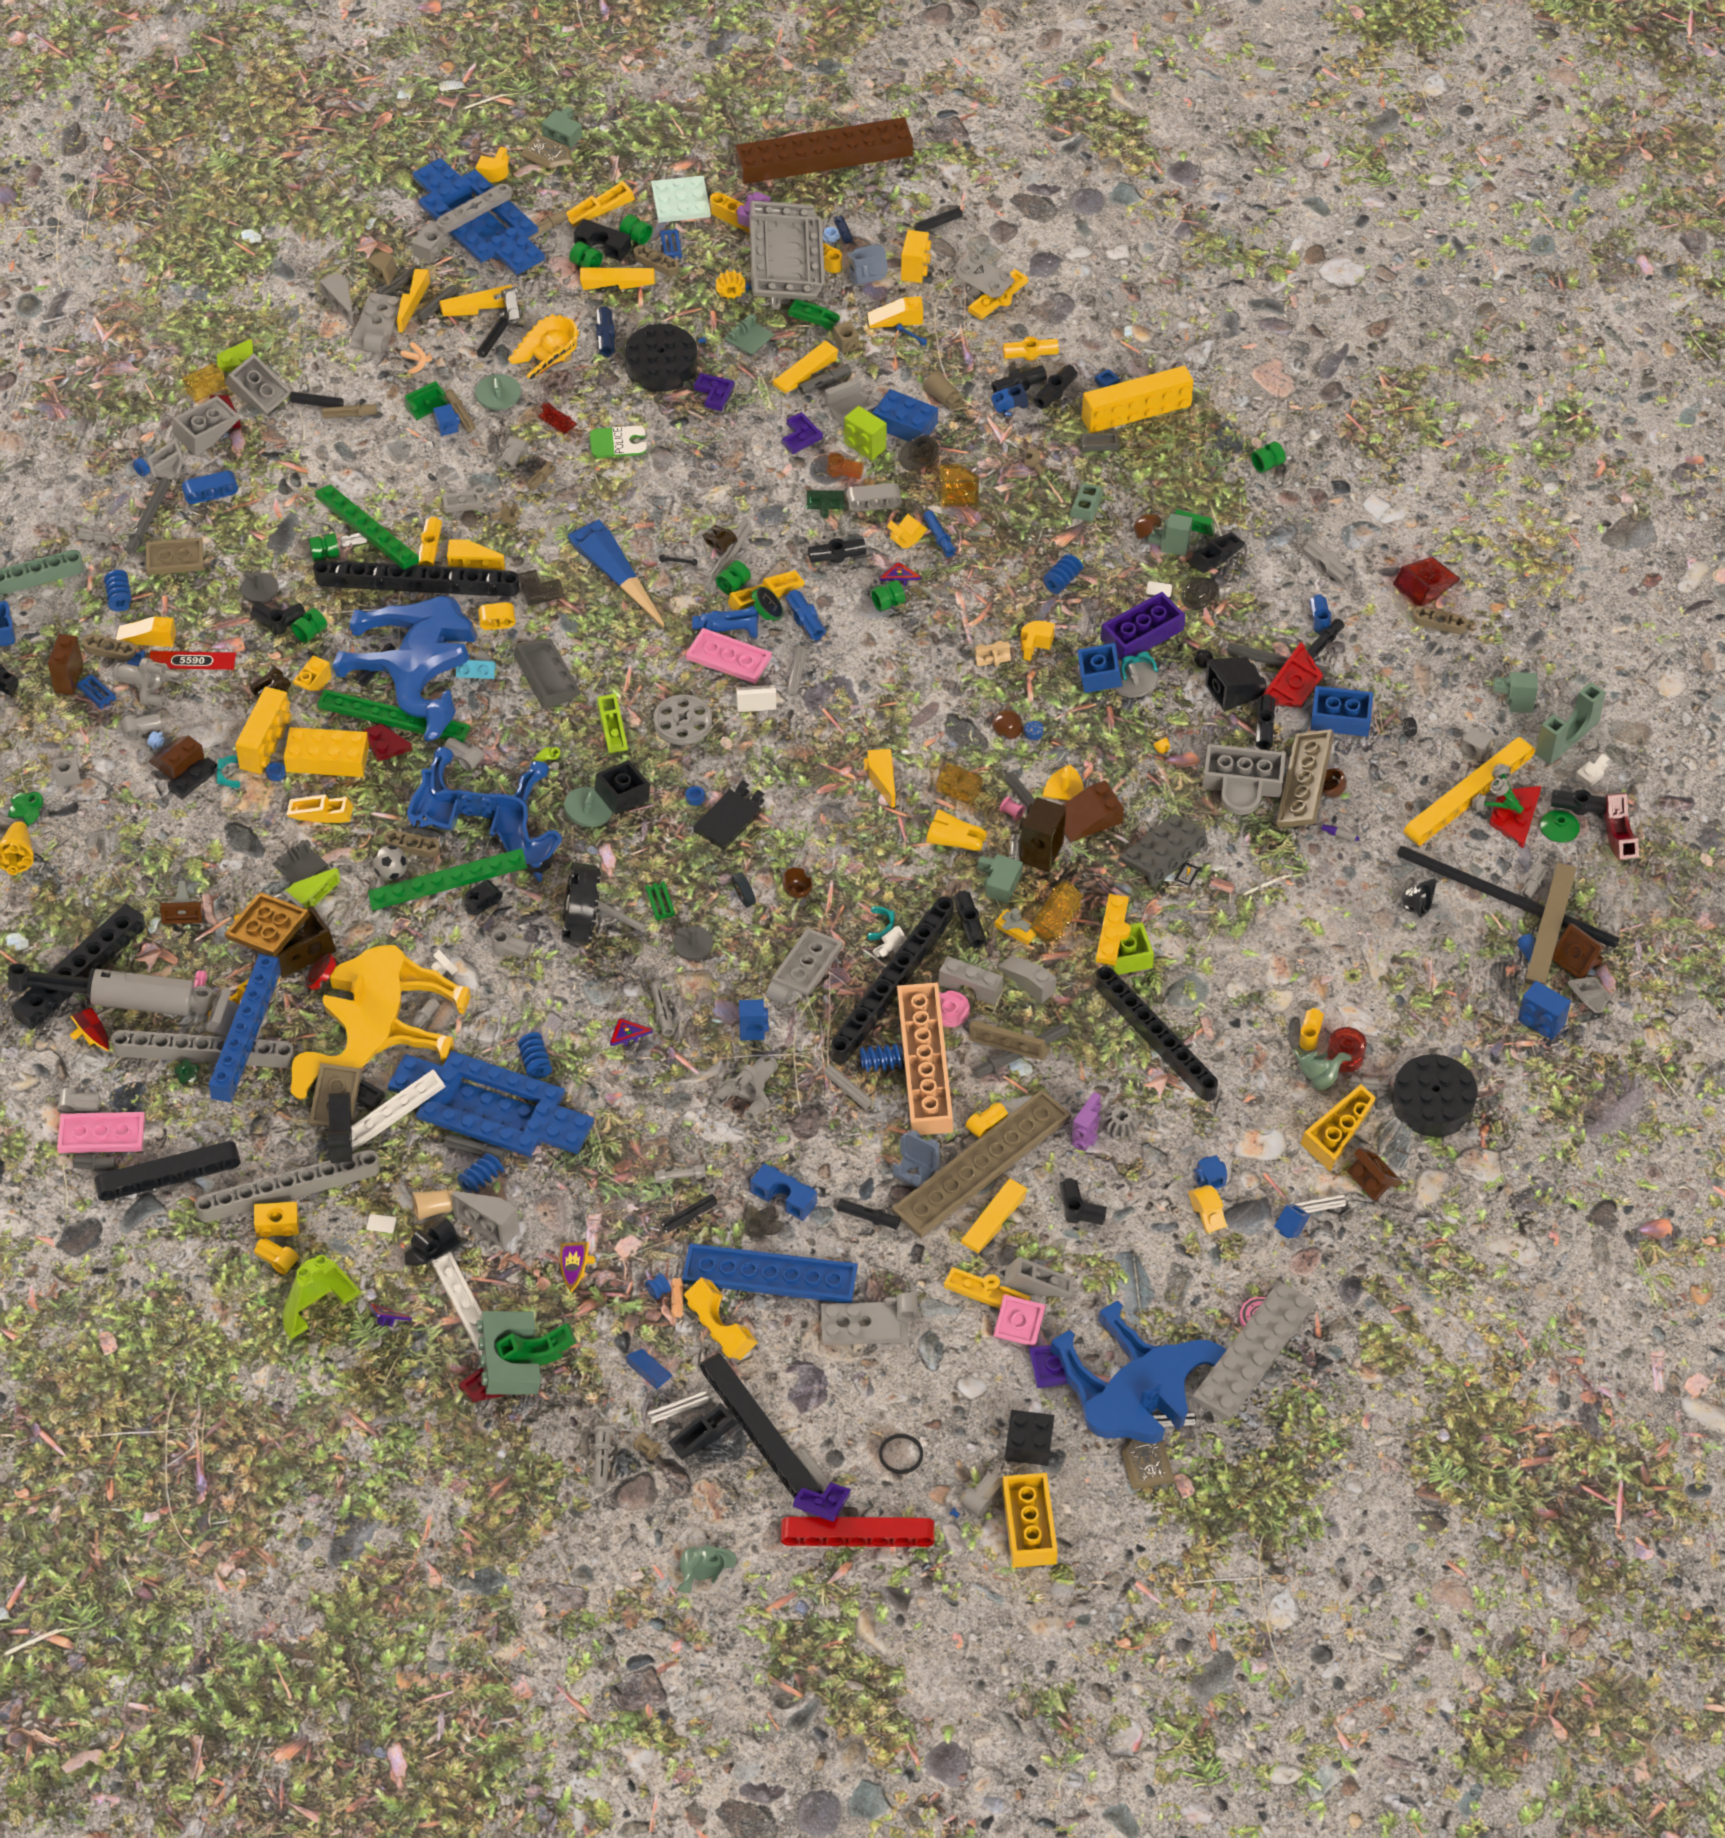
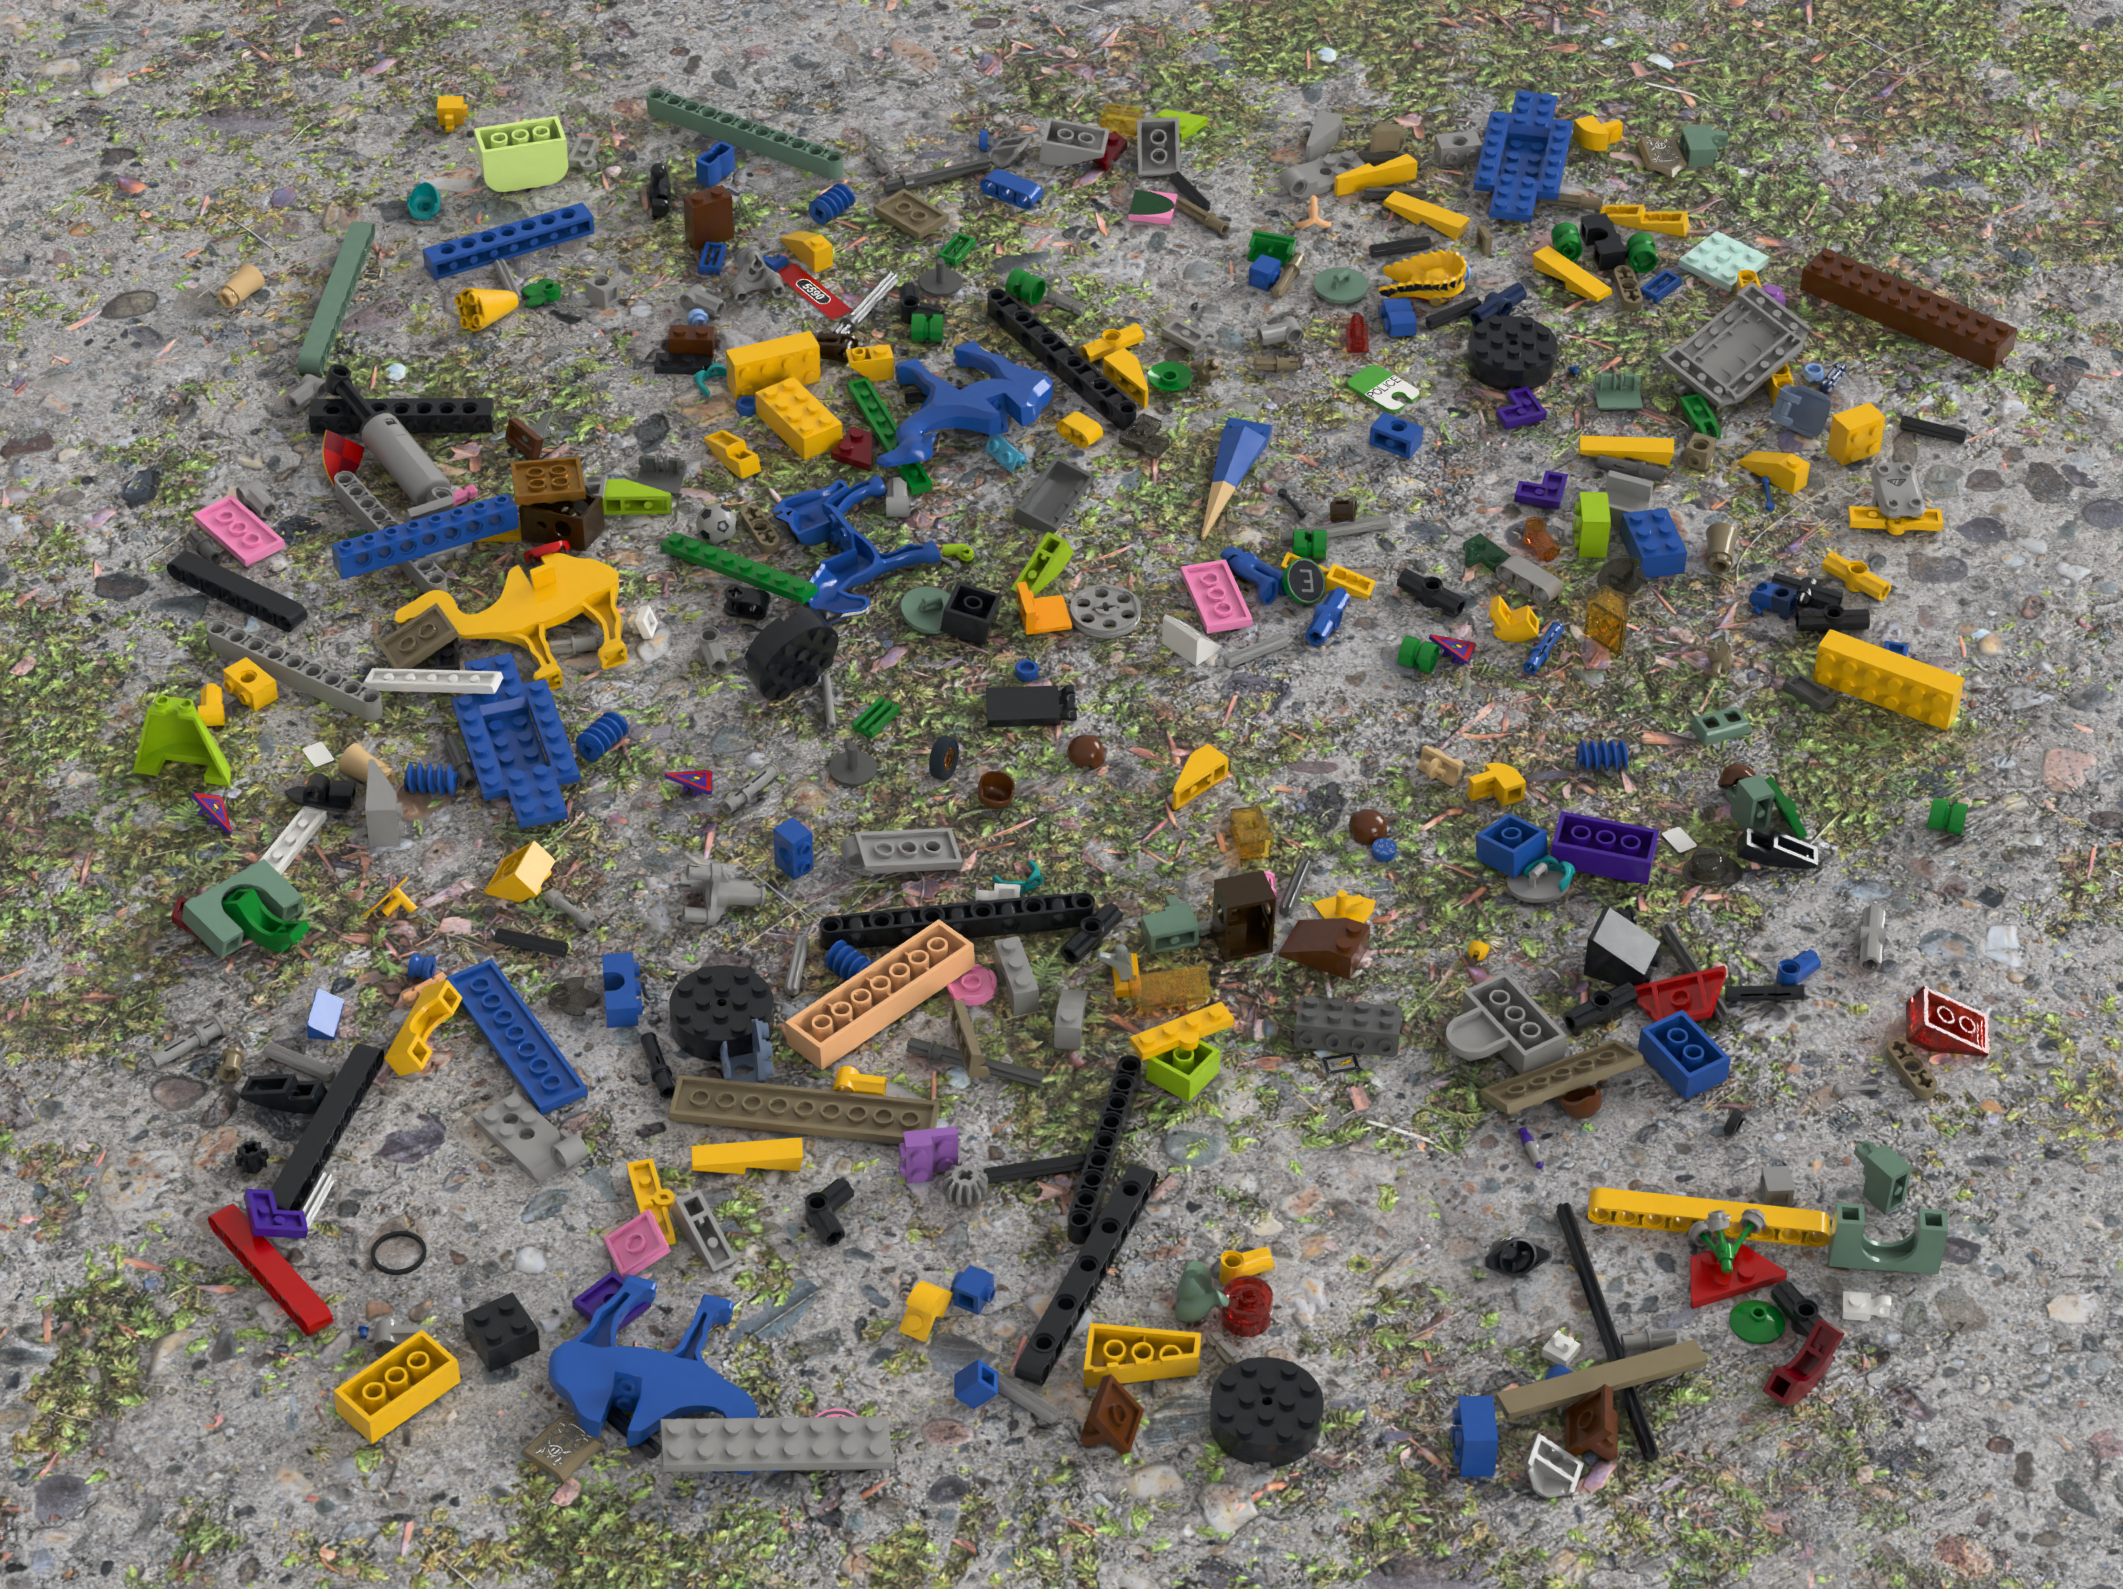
camera: 50 degrees right, 10 degrees down
(95, 645) = (768, 231): dark tan beam -> none
(241, 568) = (960, 250): none -> green tile
(254, 663) = (849, 323): none -> axle
(310, 429) = (1153, 207): none -> dark green tile
(340, 1128) = (362, 664): black beam -> none
(367, 527) = (1079, 296): green plate -> none
(483, 203) = (1521, 143): light grey piece -> none
(496, 536) = (1169, 376): none -> green dish
(510, 303) = (1443, 228): piece -> none
(536, 293) = (1484, 240): none -> dark tan tile
(563, 386) = (1397, 317): none -> blue brick
(586, 357) = (1452, 313): none -> black axle
(622, 1180) = (521, 874): none -> yellow slope
(652, 751) = (1042, 613): none -> light orange bracket
(675, 466) = (1396, 435): none -> blue brick
(703, 1564) = (126, 1176): sand green piece -> none
(730, 284) = (1655, 342): yellow gear -> none
(746, 1483) = (251, 1157): none -> black gear
(802, 815) = (1086, 751): none -> reddish brown hair
(858, 1151) = (718, 1007): none -> black piece
(953, 832) = (1185, 861): yellow piece -> none
(1138, 1077) = (1035, 1168): none -> black axle
(1256, 1119) = (1086, 1275): none -> black beam
(1503, 928) = (1561, 1349): none -> white tile

